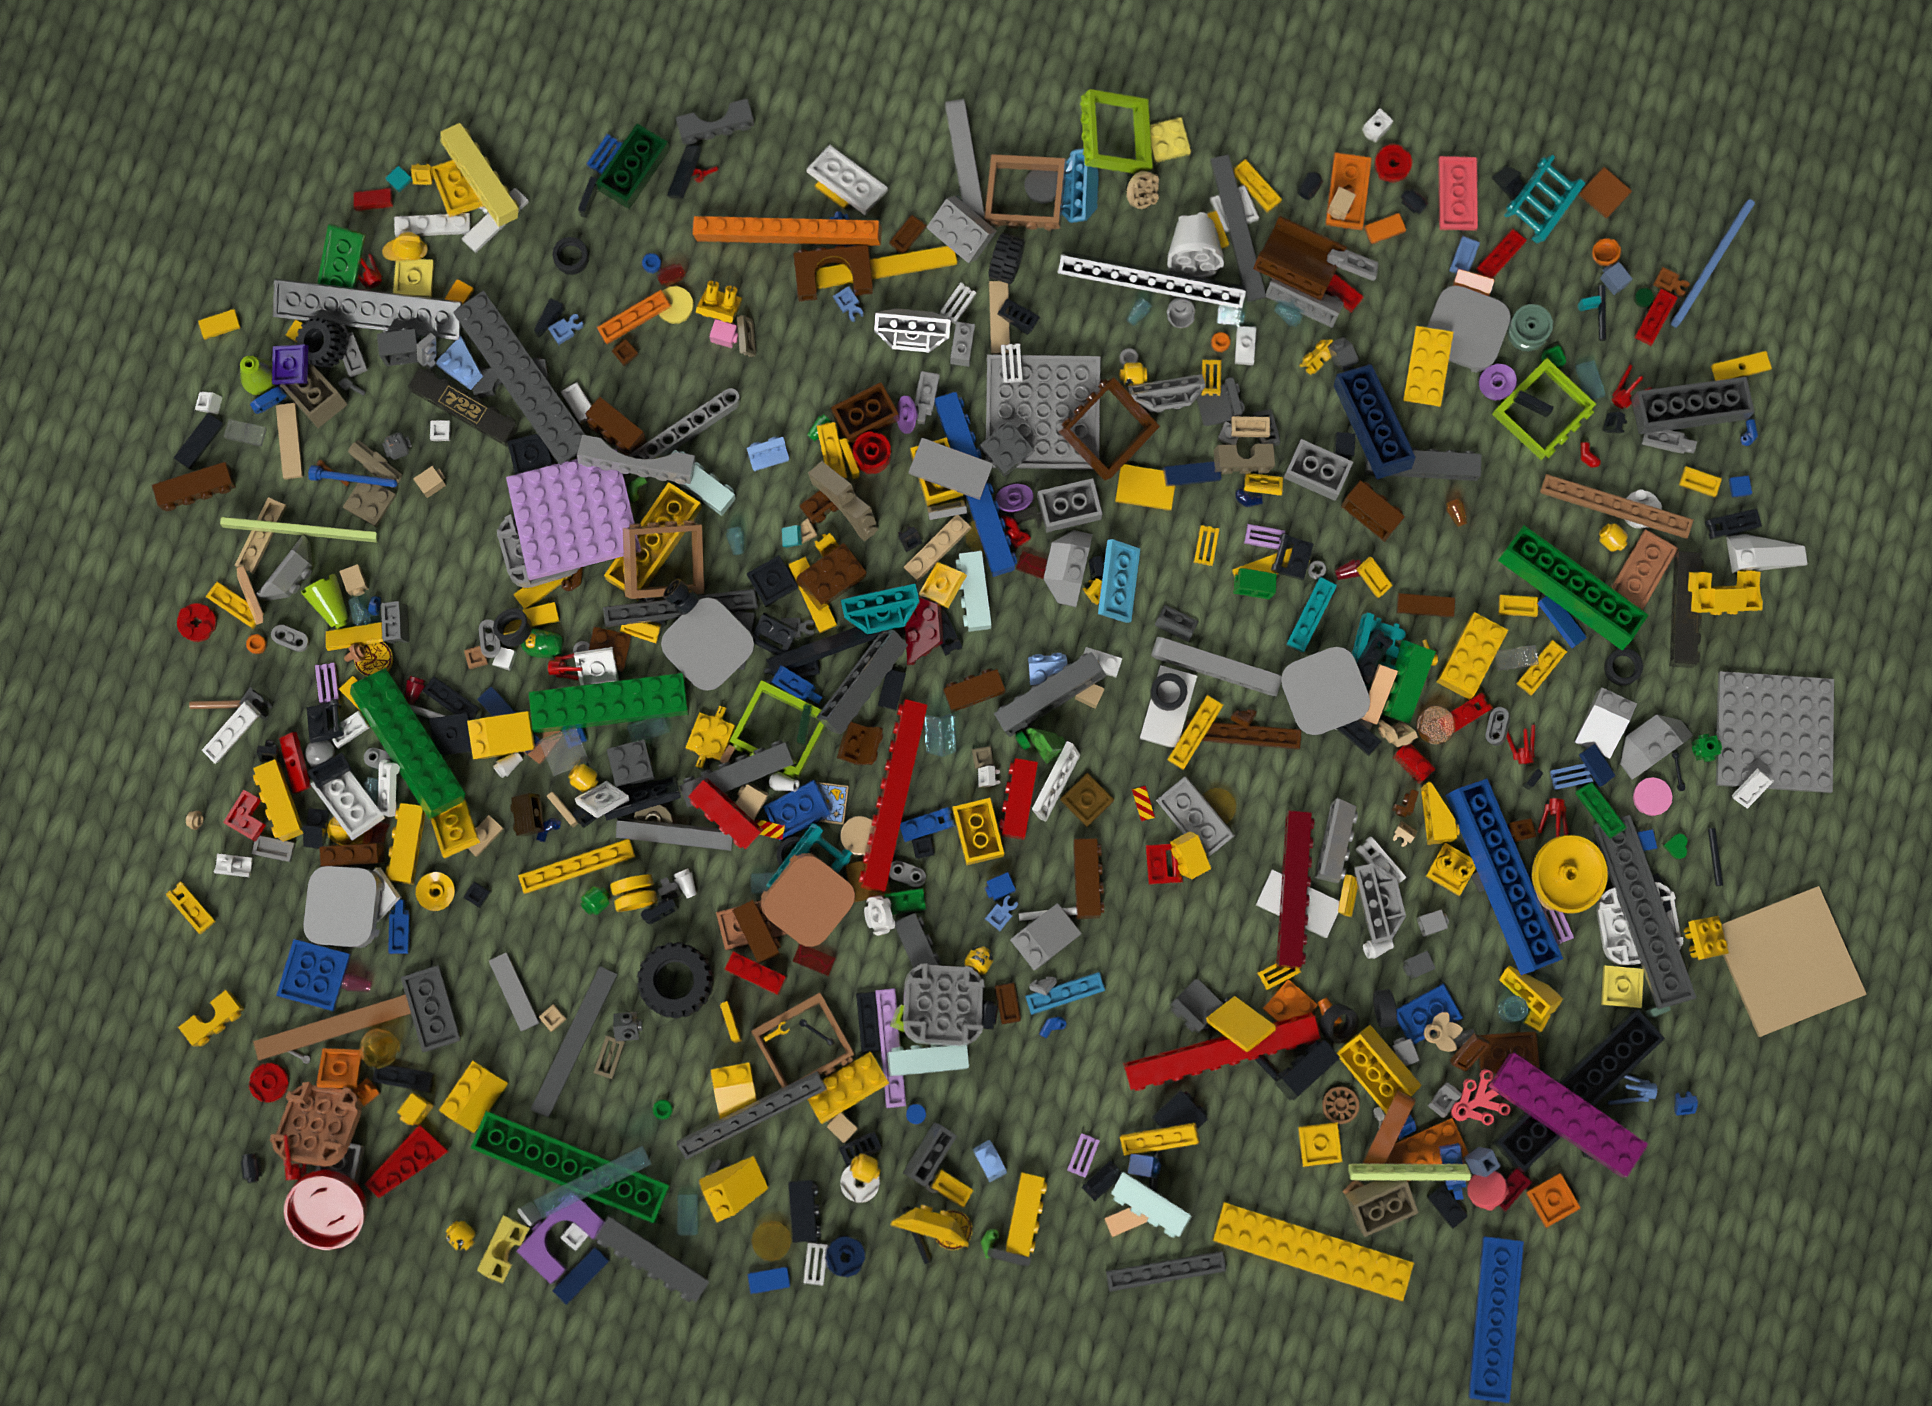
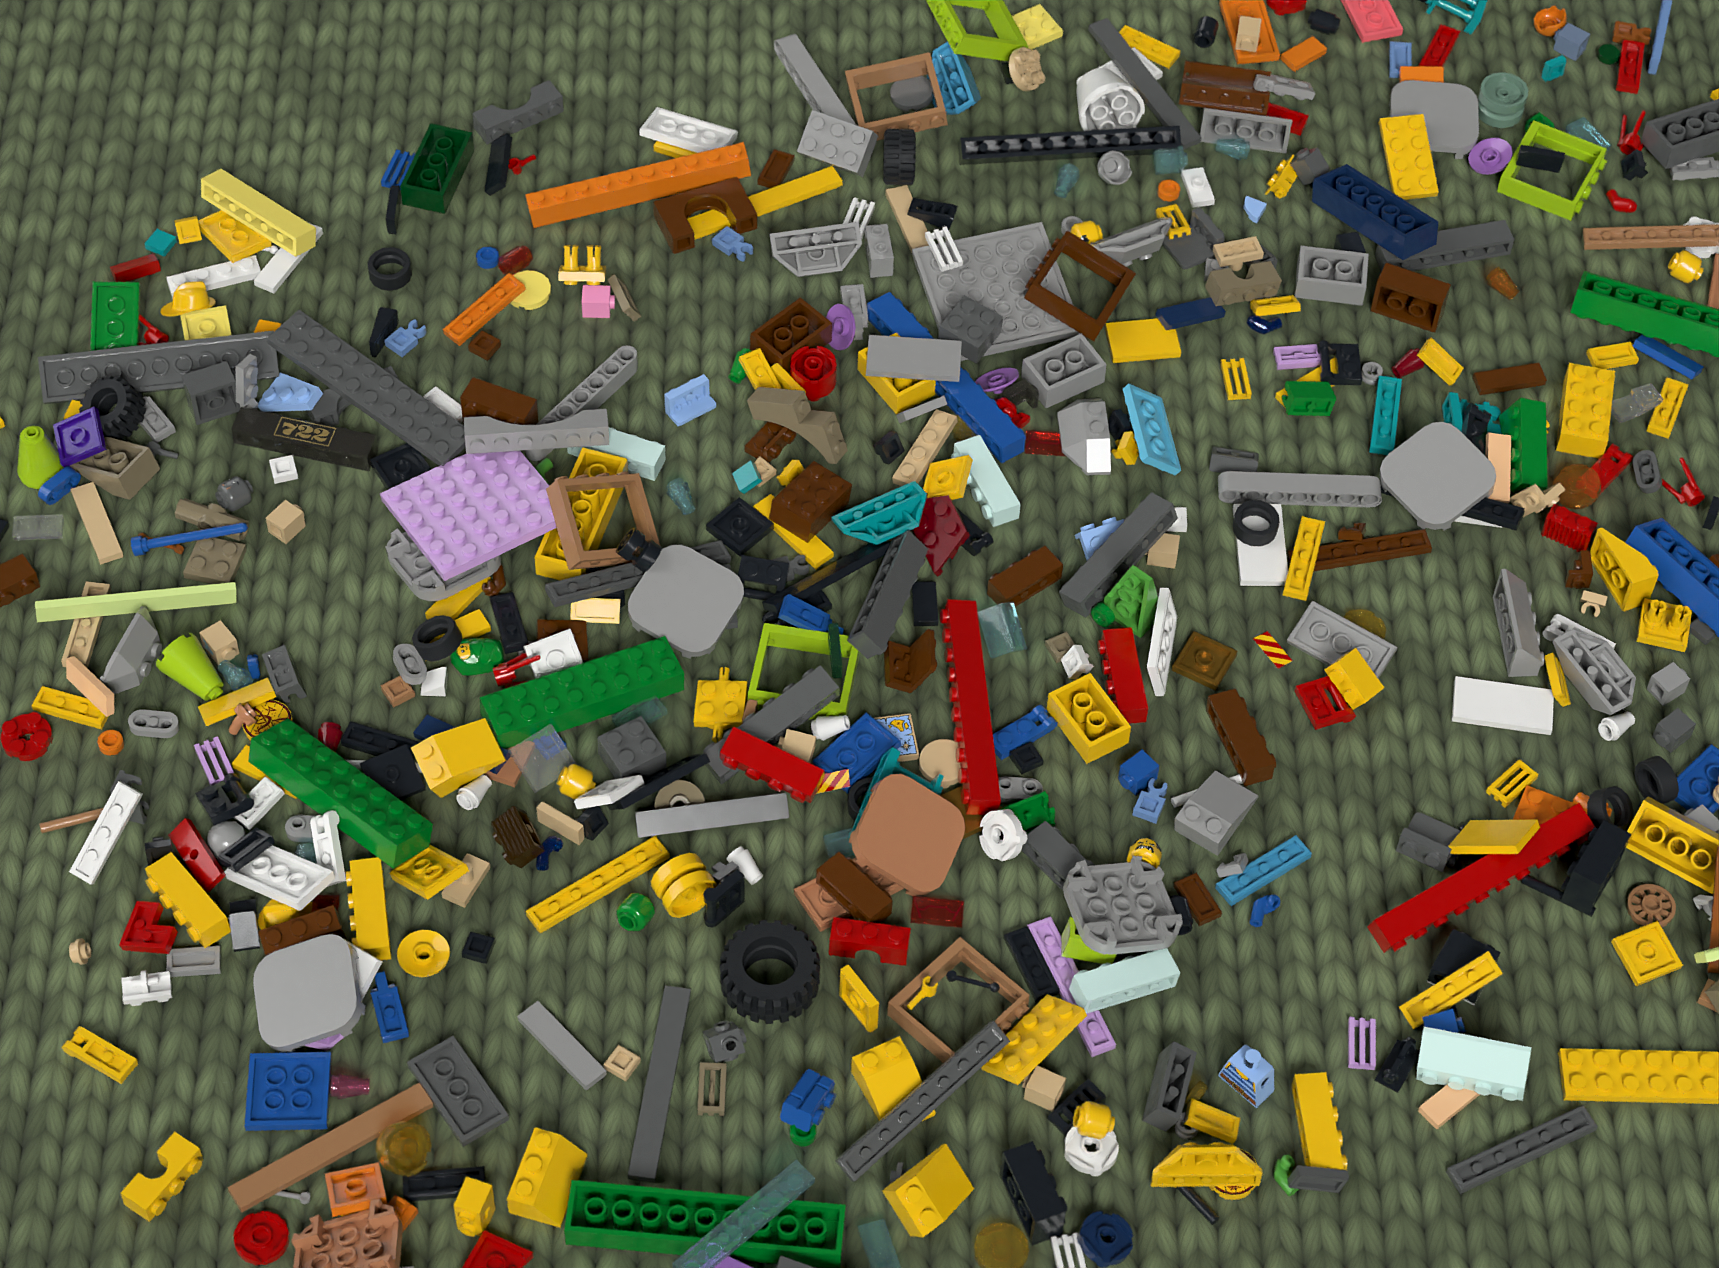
camera: 15 degrees left, 25 degrees down
(573, 621) = (509, 622): none -> black tile
(671, 1091) = (807, 1101): none -> blue brick
(915, 1114) = (1132, 1051): blue tile -> none
(949, 1163) = (1197, 1092): none -> clear yellow tile
(1283, 380) = (1254, 208): none -> light blue tile
(1294, 889) = (1492, 686): dark red brick -> none
(1602, 313) = (1573, 80): black bar -> none

